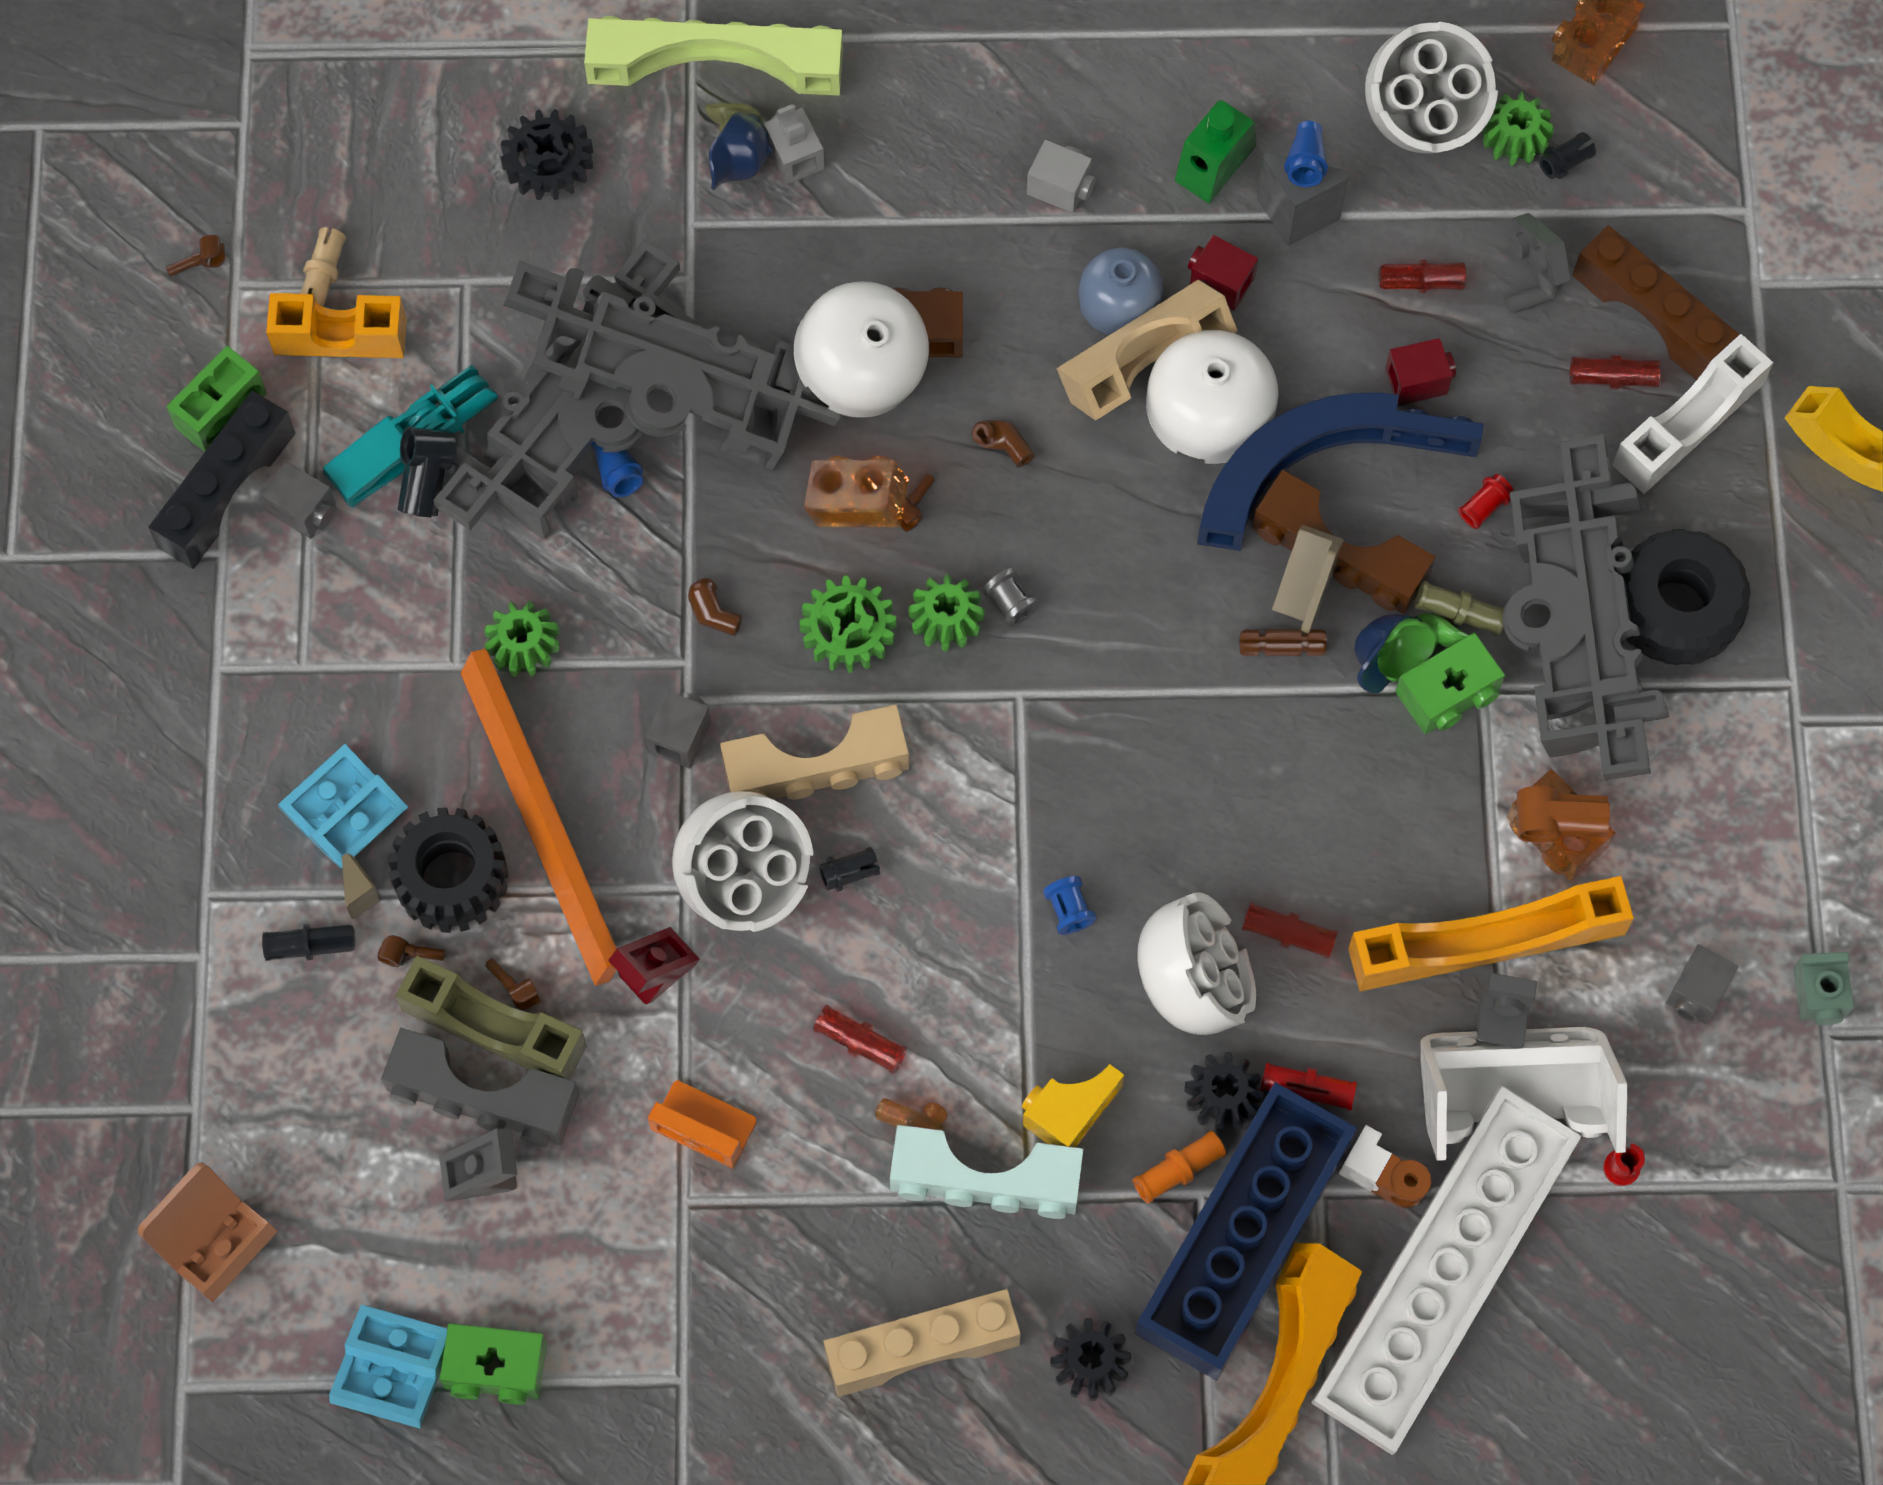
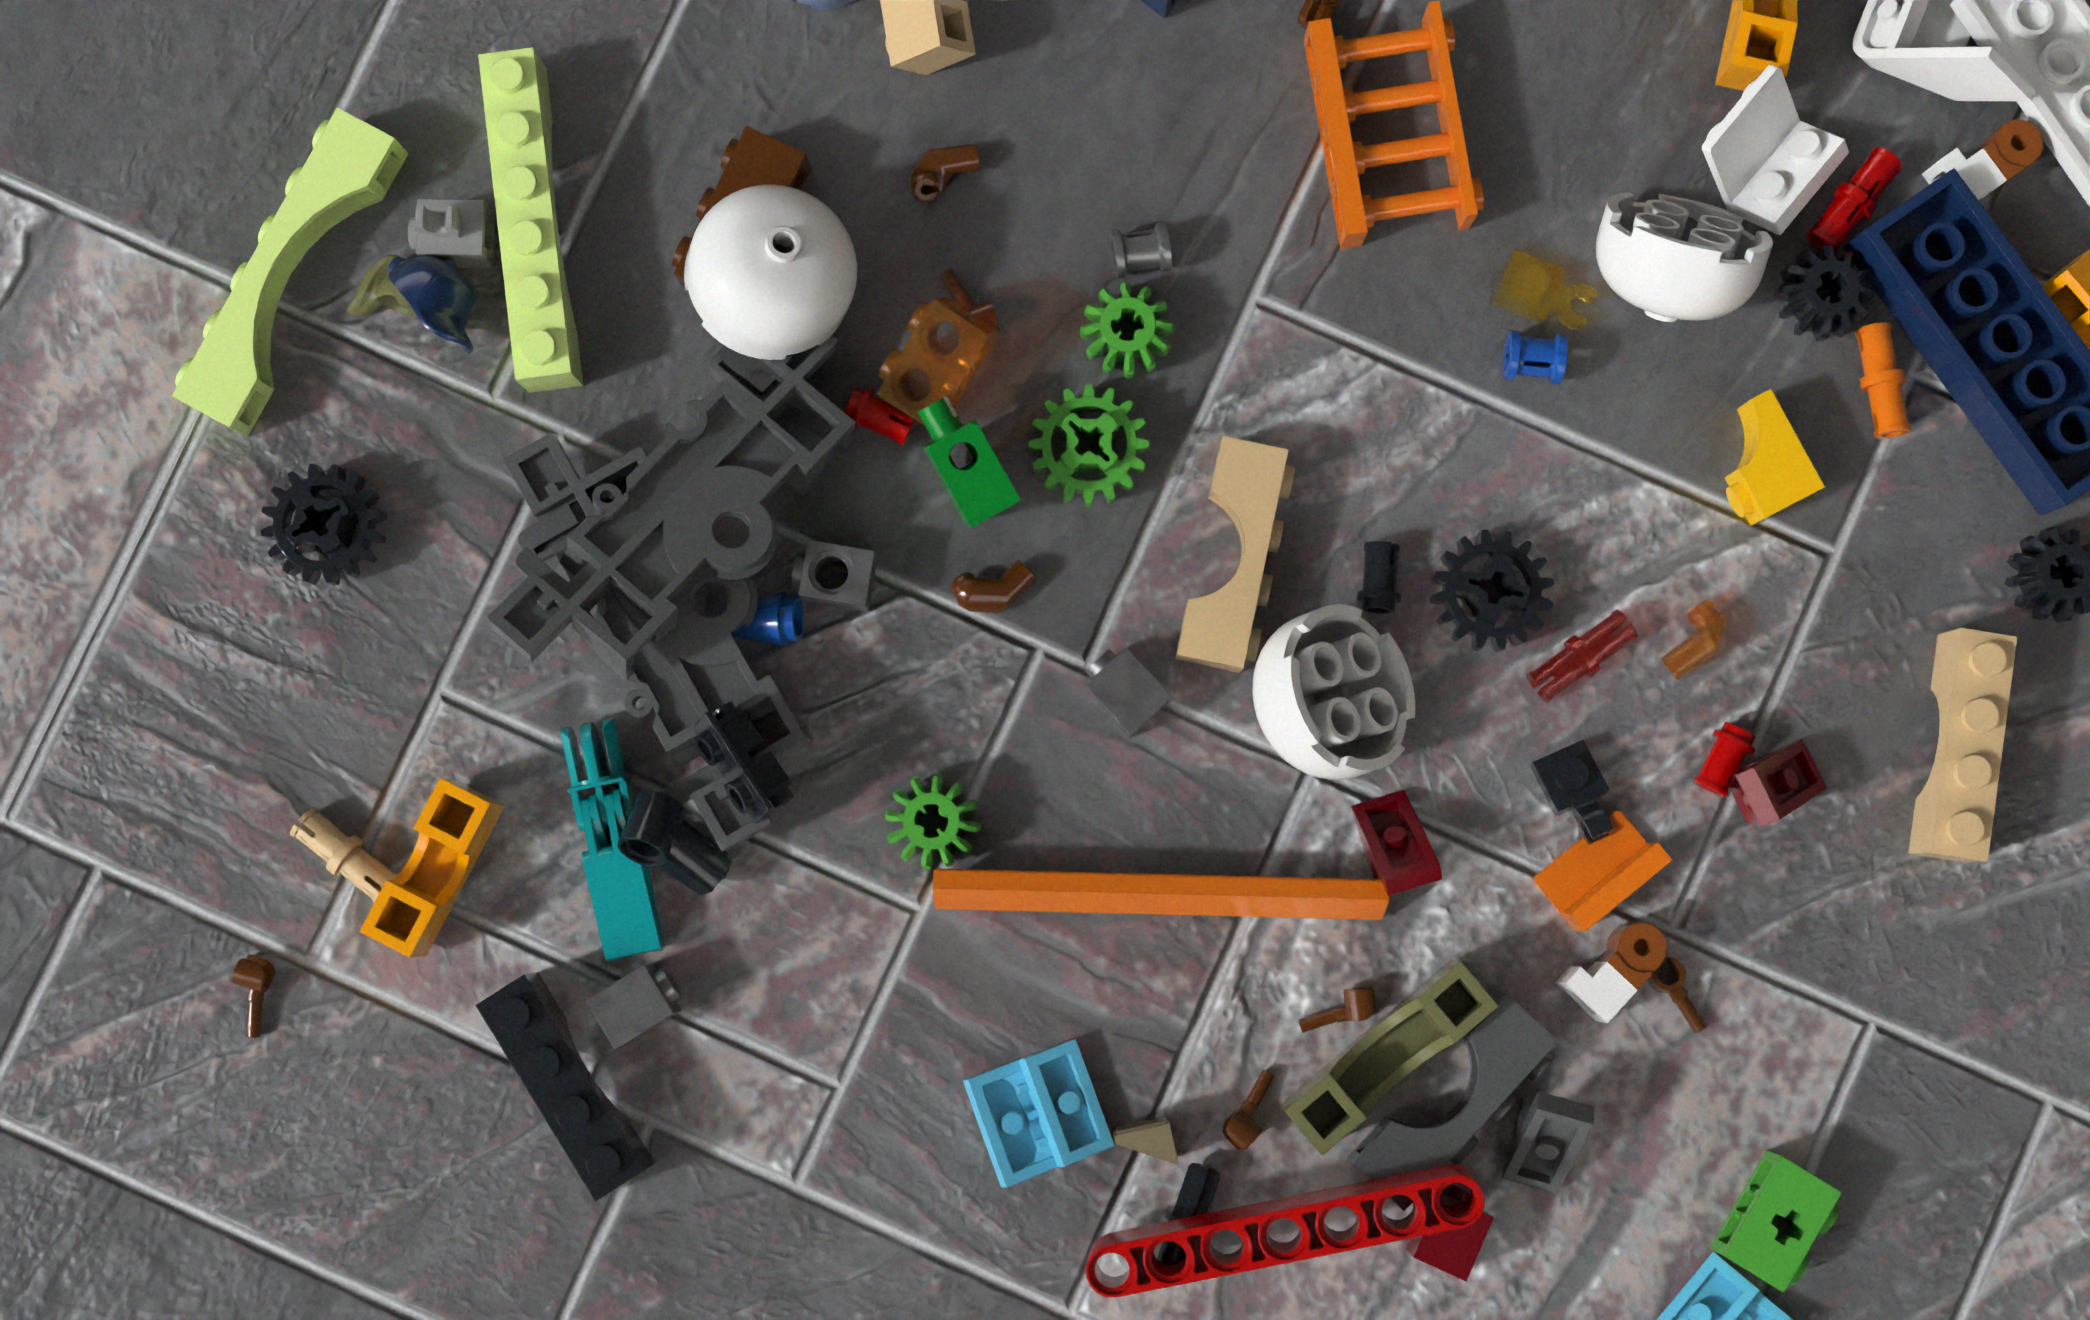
camera: 60 degrees left, 15 degrees up
(214, 397) = (460, 1050): bright green brick -> none
(337, 1011) = (1312, 1241): none -> red beam
(381, 1127) = (1453, 1249): none -> dark red brick
(440, 836) = (1182, 1078): black tyre -> none
(511, 466) = (749, 781): none -> black hinge
(637, 1220) = (1679, 994): none -> reddish brown hand
(638, 1169) = (1629, 961): none -> leg
(672, 514) = (857, 589): none -> flat silver brick
(756, 1074) = (1573, 783): none -> black plate
(764, 220) = (531, 255): none -> yellowish green arch
(783, 556) = (981, 485): none -> green torso
(799, 467) = (878, 415): none -> red pin
(828, 1218) = (1776, 784): none -> dark red slope
(830, 1176) = (1725, 759): none -> red pin
(893, 946) = (1514, 598): none -> black gear
(1041, 1182) = (1835, 533): light aqua arch -> none
(1124, 888) = (1534, 288): none -> clear yellow plate
(1187, 683) = (1348, 159): none -> orange fence
(1289, 930) = (1670, 135): clear red pin -> none
(1307, 996) = (1767, 157): none -> white bracket

